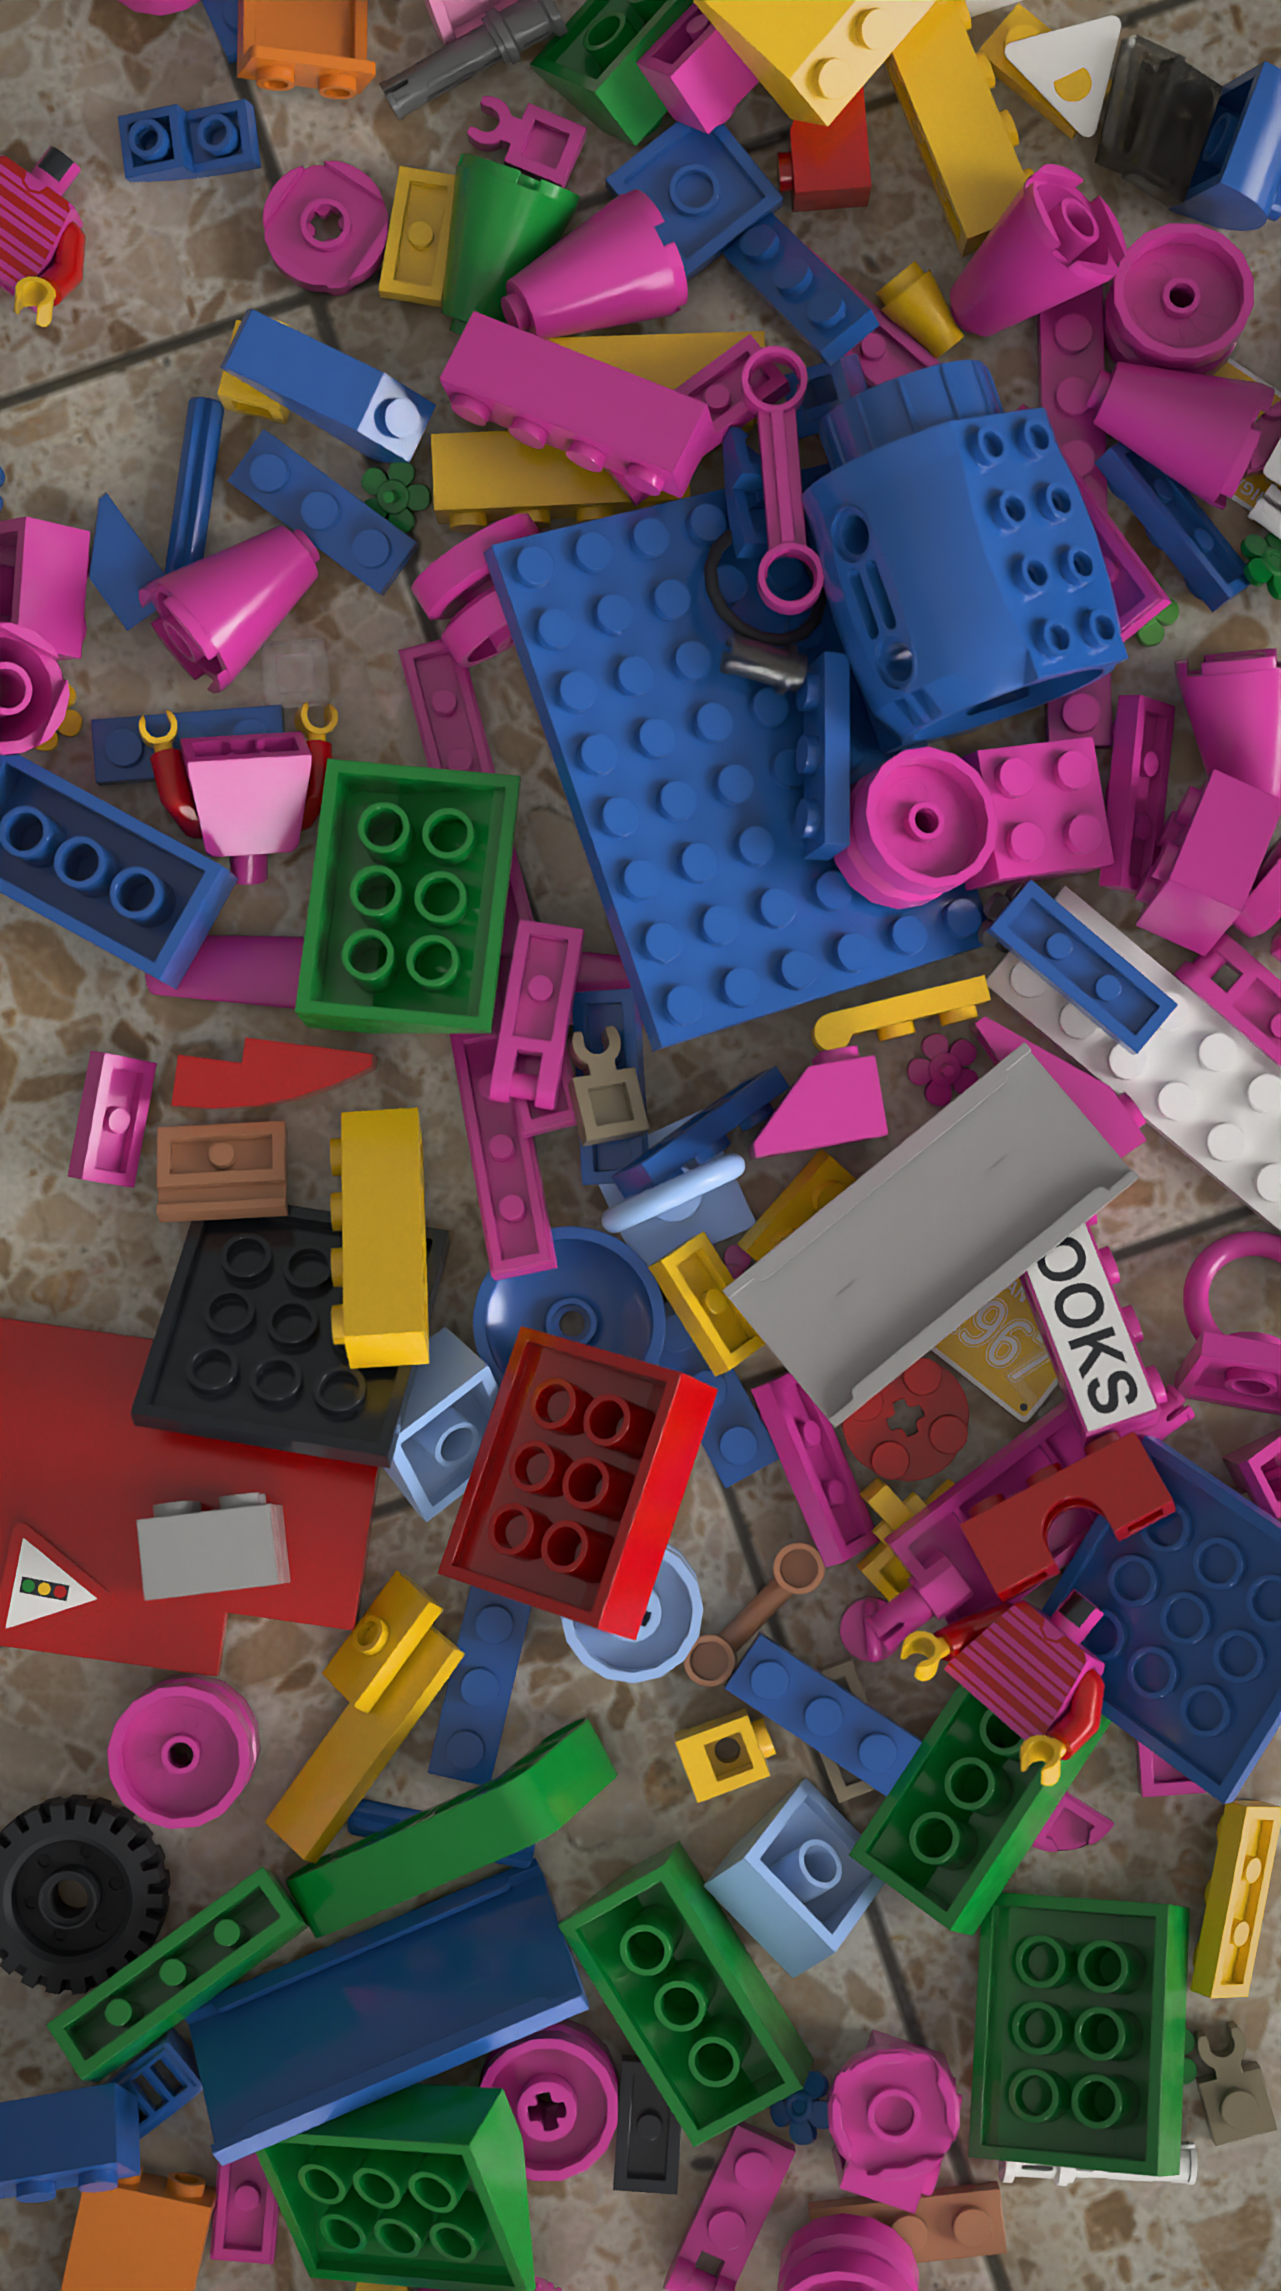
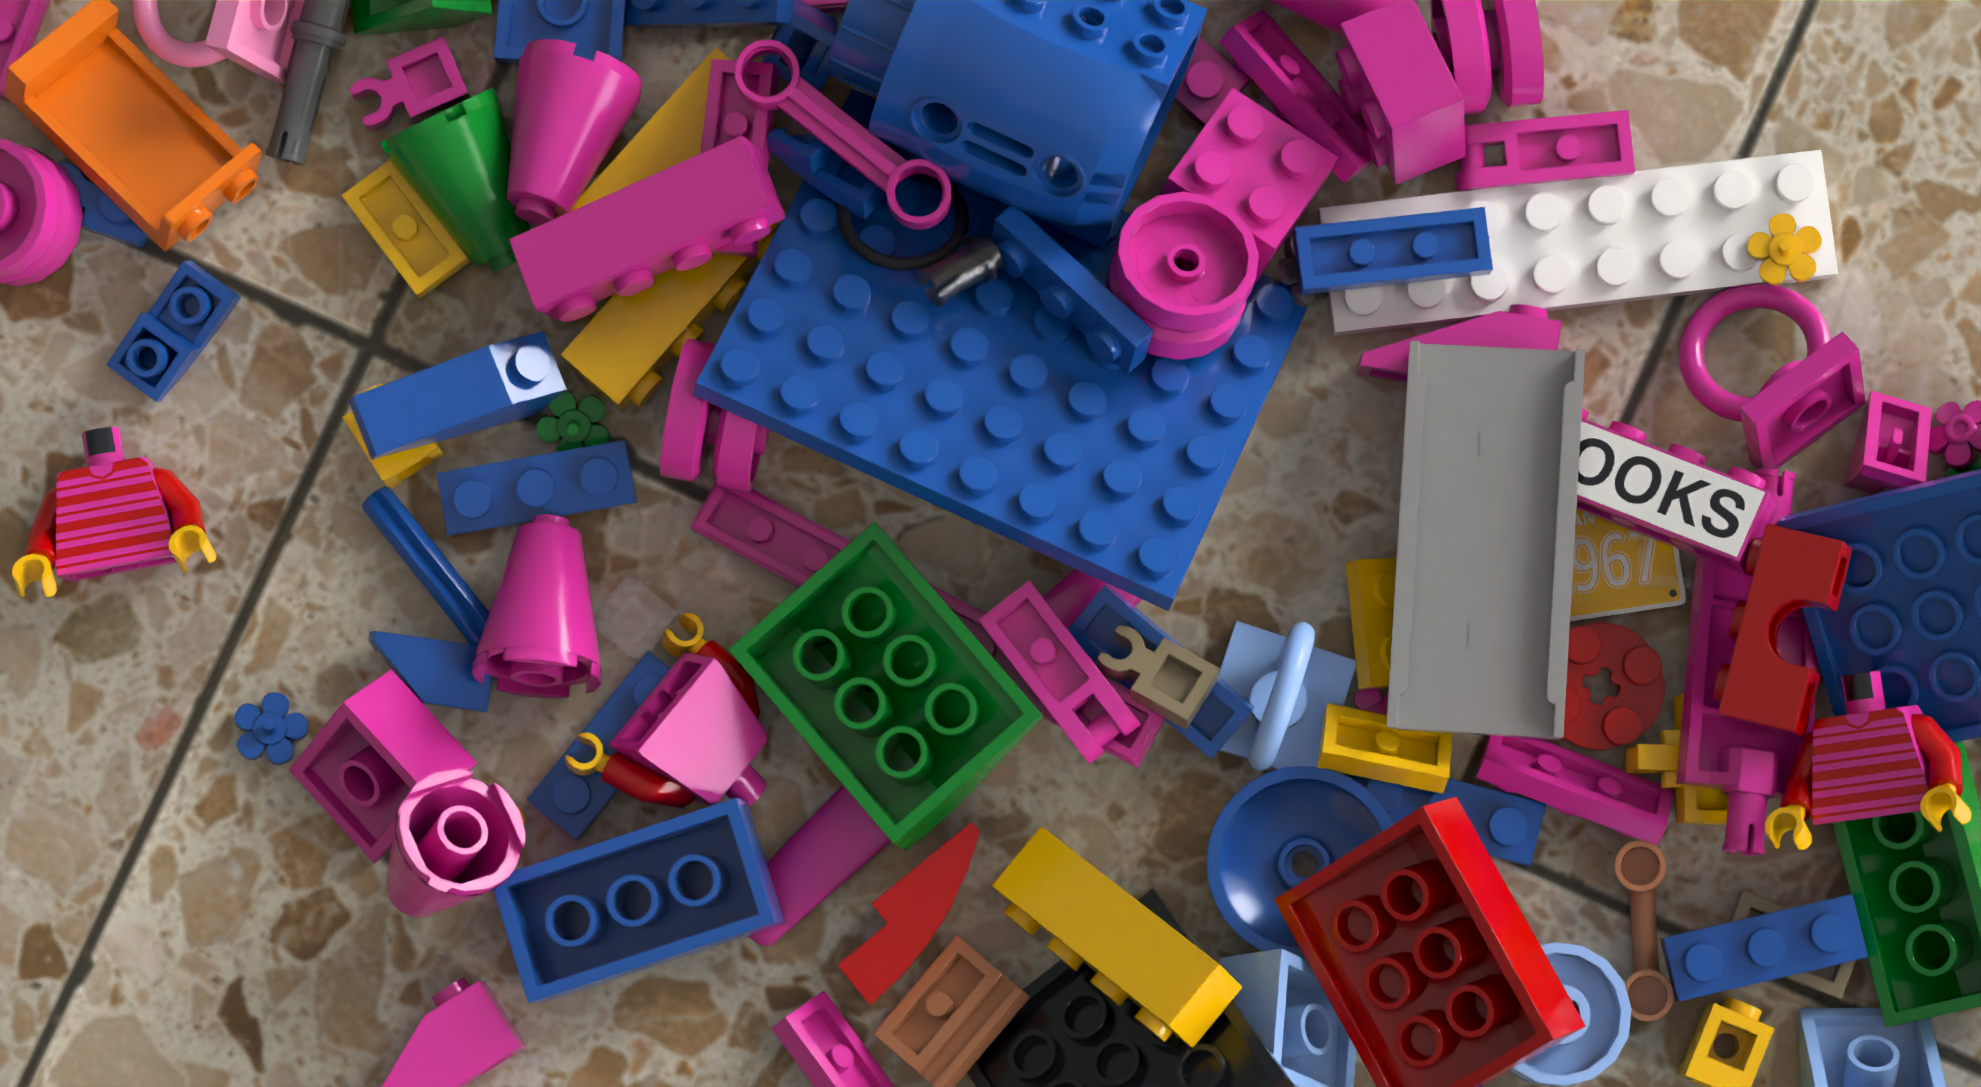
camera: 50 degrees left, 5 degrees down
(320, 191) = (301, 270): dark pink plate -> none
(503, 1166) = (1139, 802): dark pink tile -> none
(704, 1133) = (1257, 634): blue plate -> none
(826, 1107) = (1321, 525): dark pink slope -> none
(856, 1633) = (1728, 869): dark pink tile -> none
(896, 1015) = (1300, 417): yellow plate -> none
(943, 1068) = (1370, 419): dark pink plant -> none

